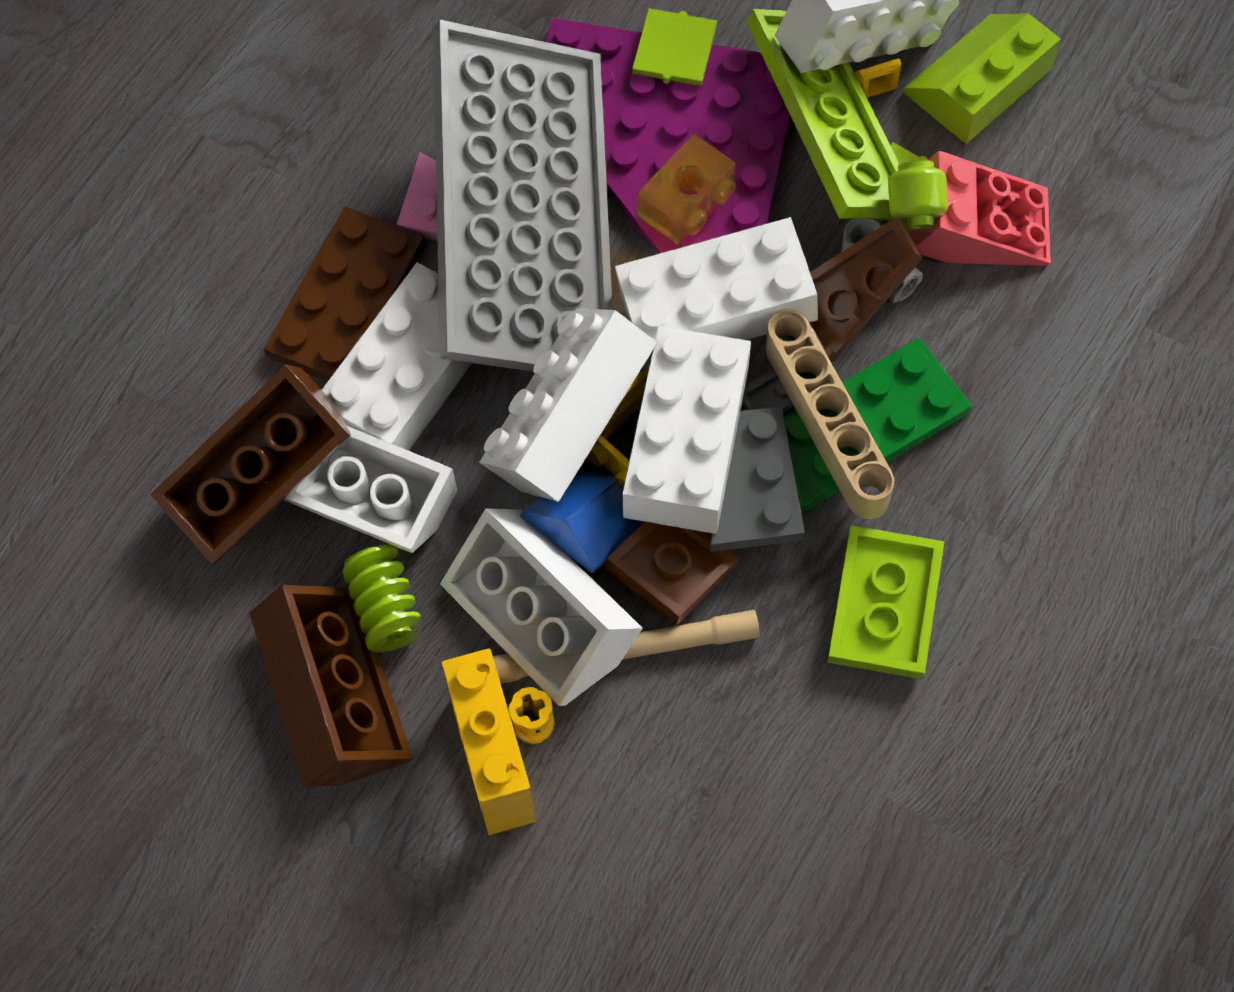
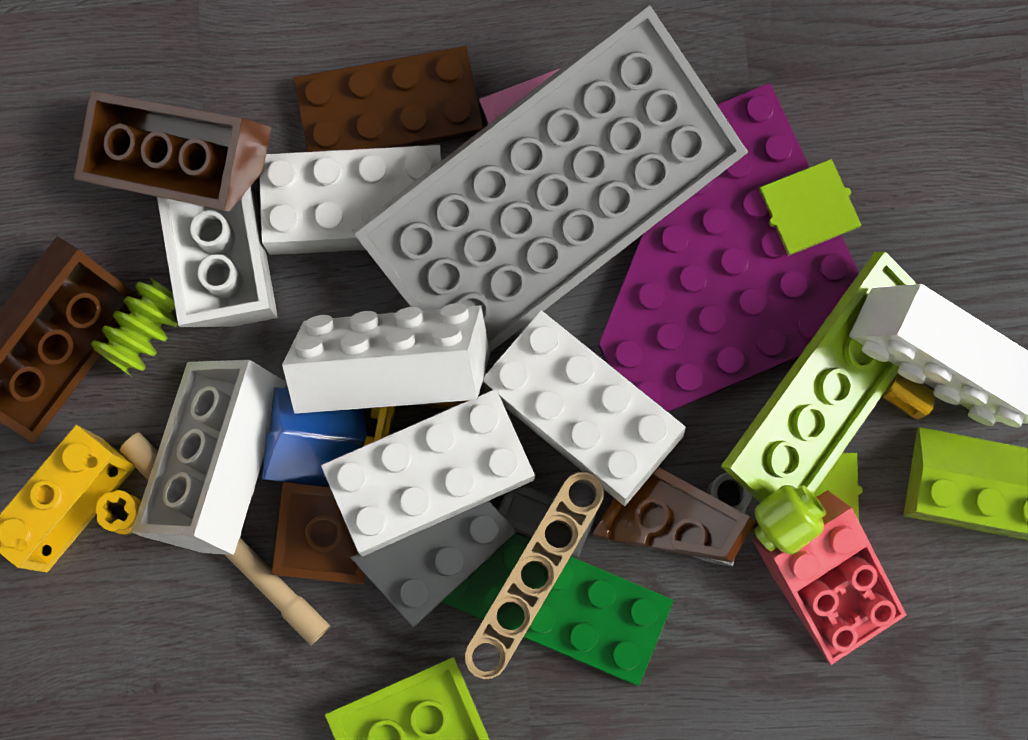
camera: 50 degrees right, 15 degrees up
(692, 167) = (690, 303): clear yellow brick -> none

